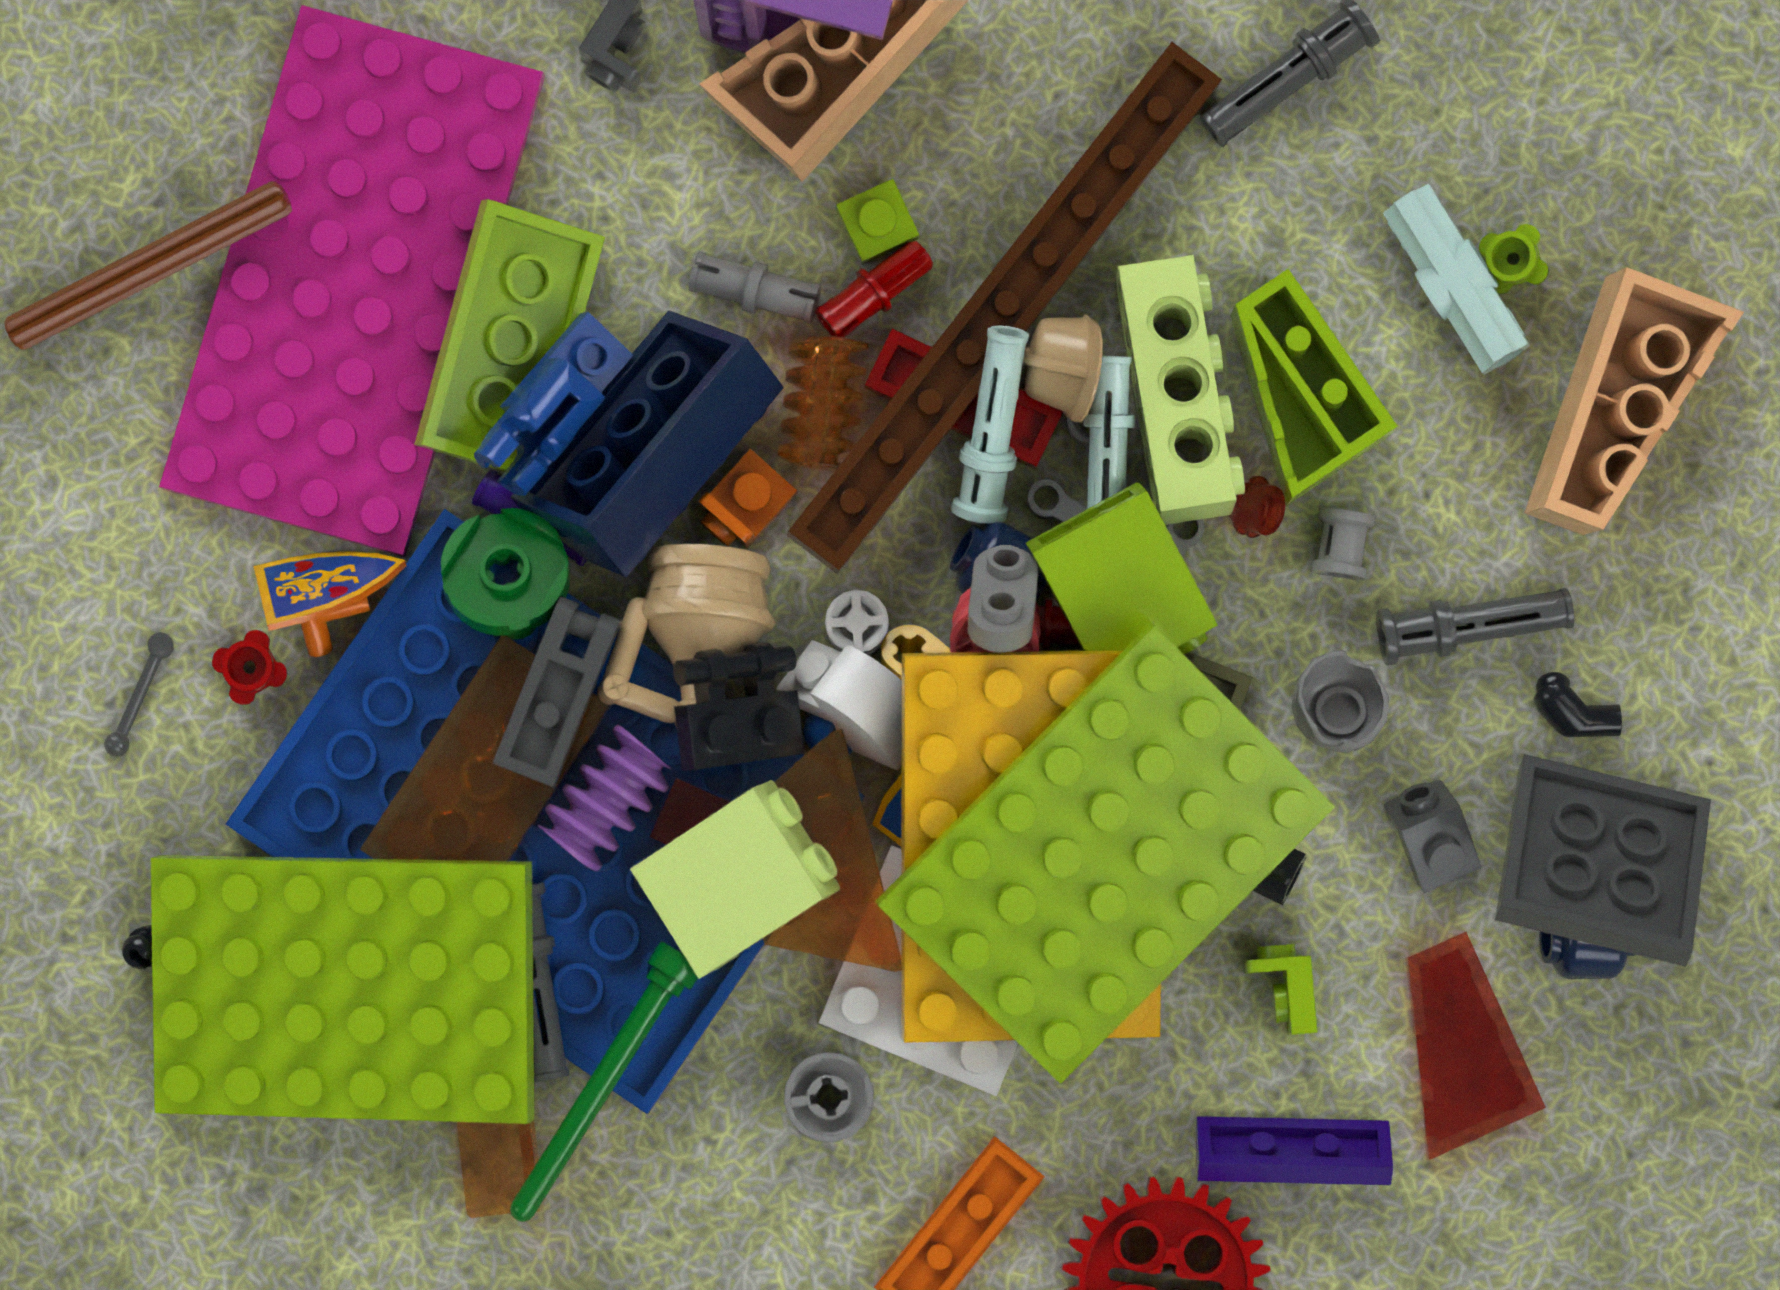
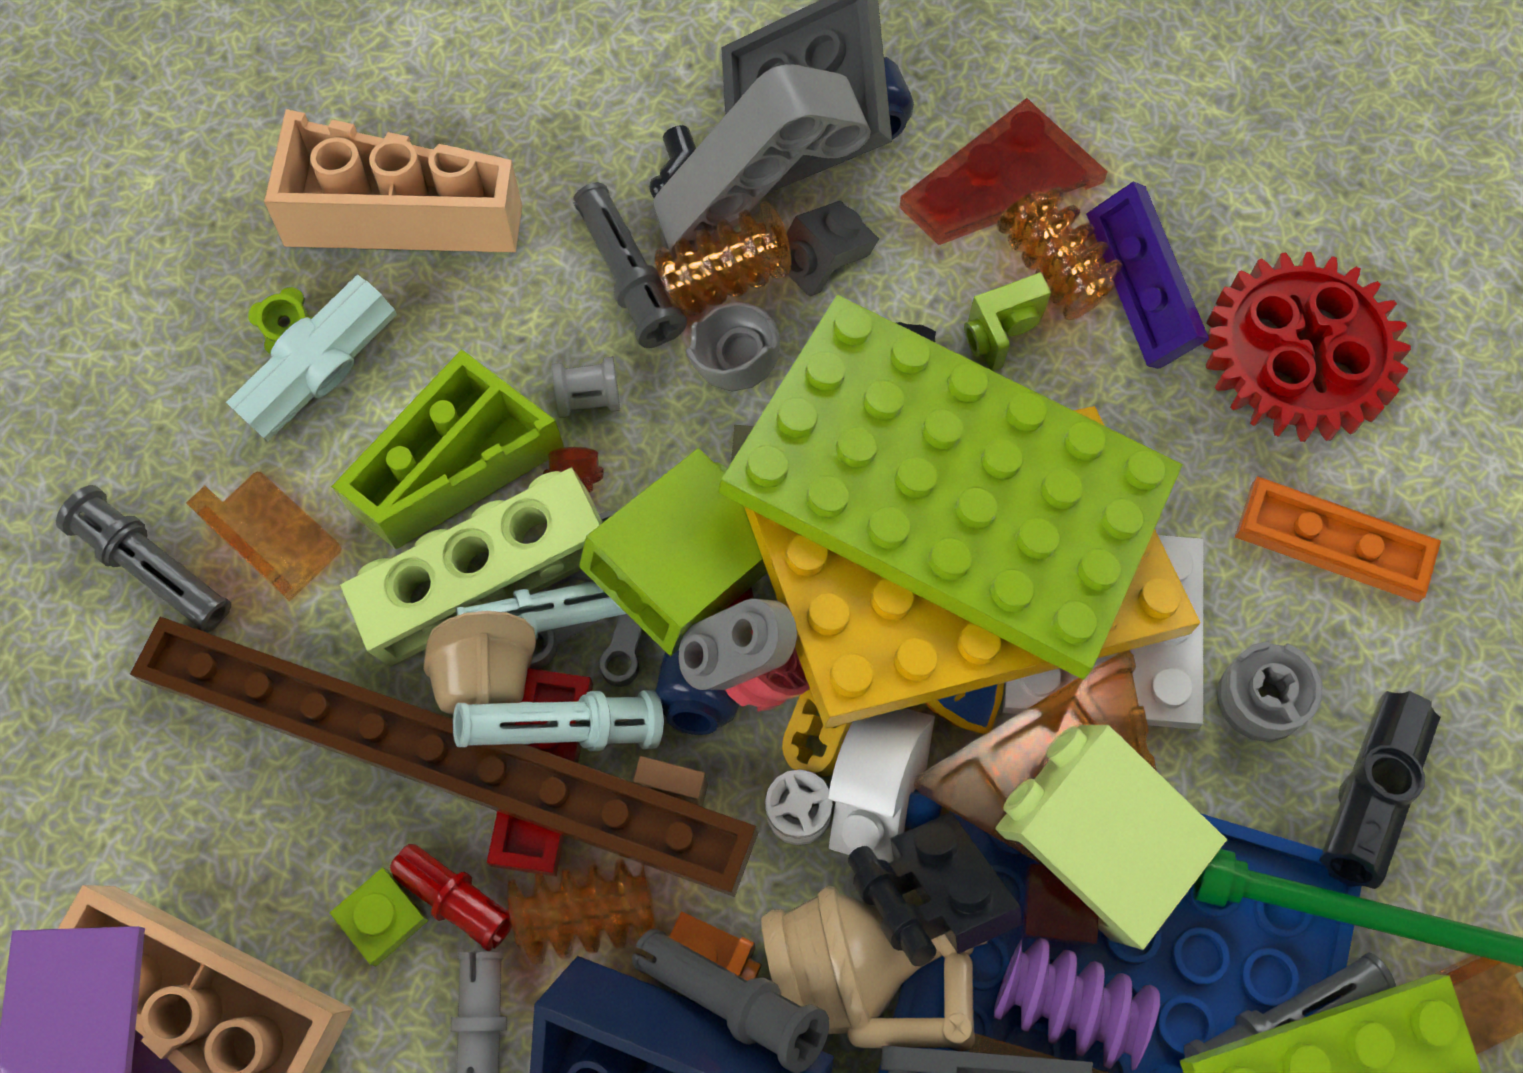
camera: 105 degrees left, 15 degrees down
(679, 1126) = (1368, 817): none -> black piece
(685, 518) = (751, 1007): none -> dark grey pin
(911, 512) = (672, 780): none -> medium nougat plate
(1283, 197) = (268, 532): none -> clear orange panel
(1345, 1071) = (1059, 250): none -> clear orange piece
(1431, 718) = (726, 264): none -> clear orange piece
(1522, 781) = (755, 144): none -> light grey beam

